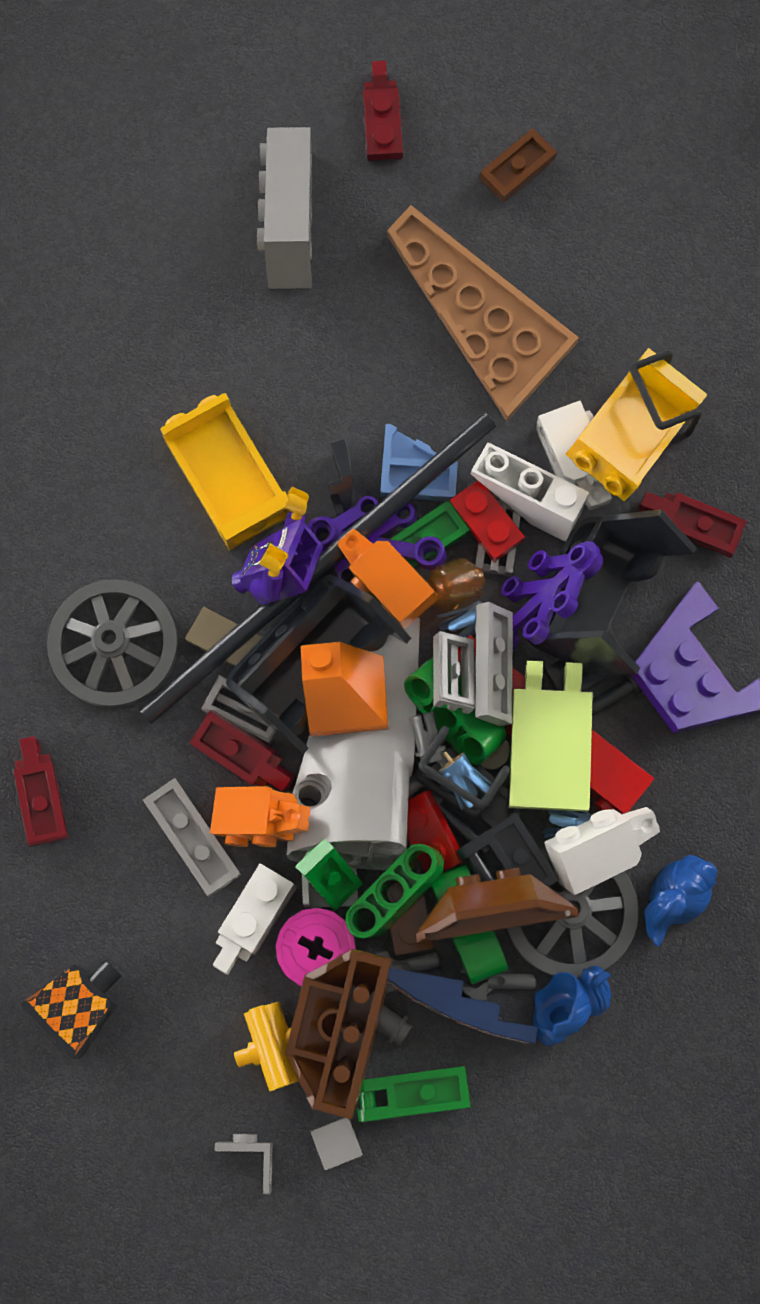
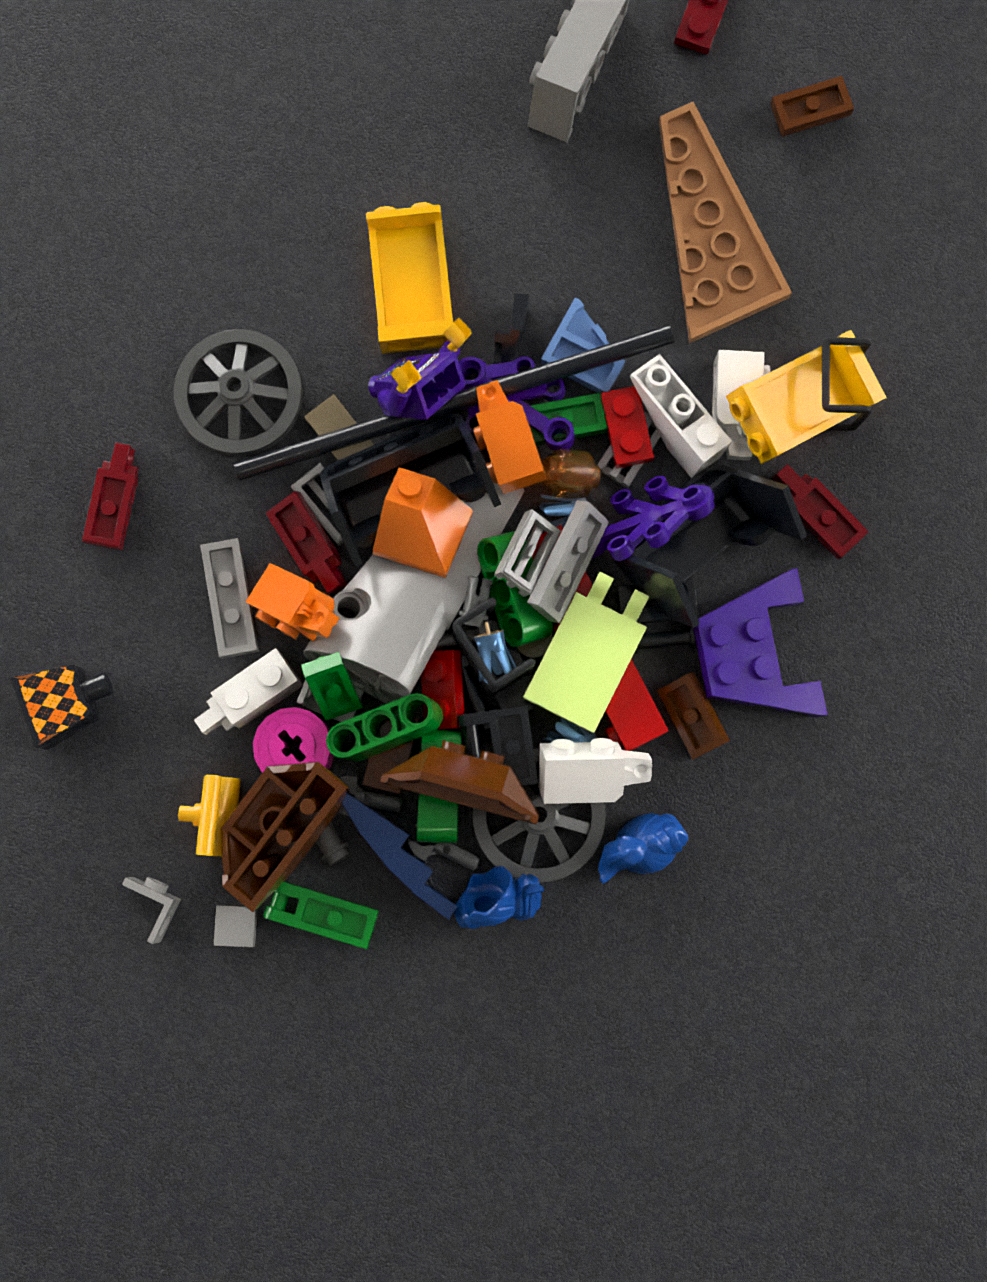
camera: 25 degrees right, 5 degrees up
(668, 755) = (693, 715): none -> reddish brown plate

